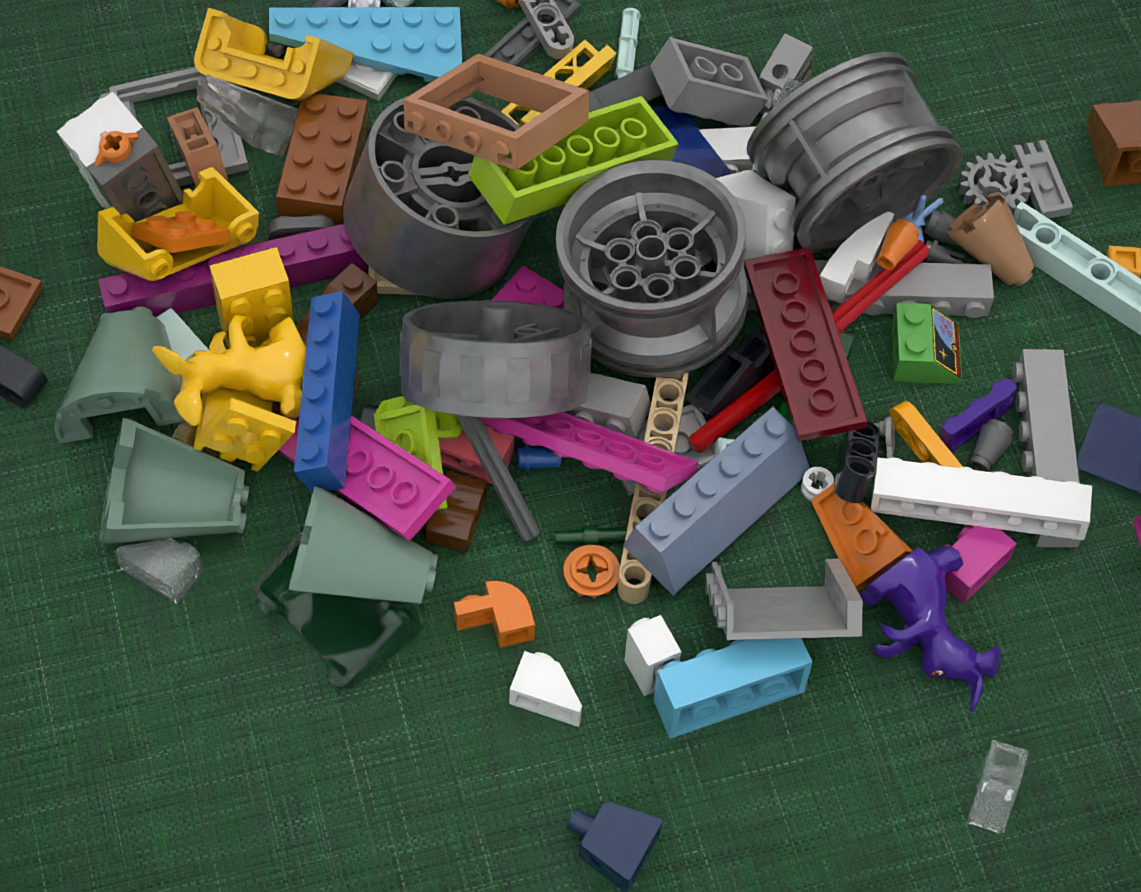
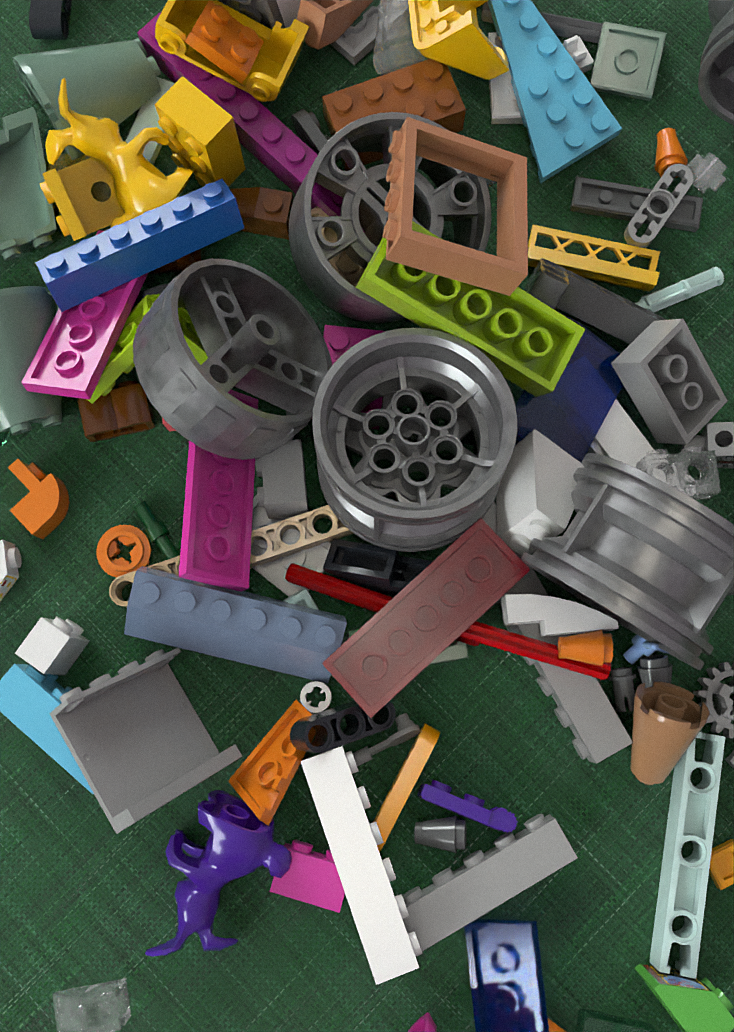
camera: 65 degrees right, 20 degrees up
(499, 477) = (154, 423): dark grey axle -> none
(925, 345) = (515, 723): bright green slope -> none

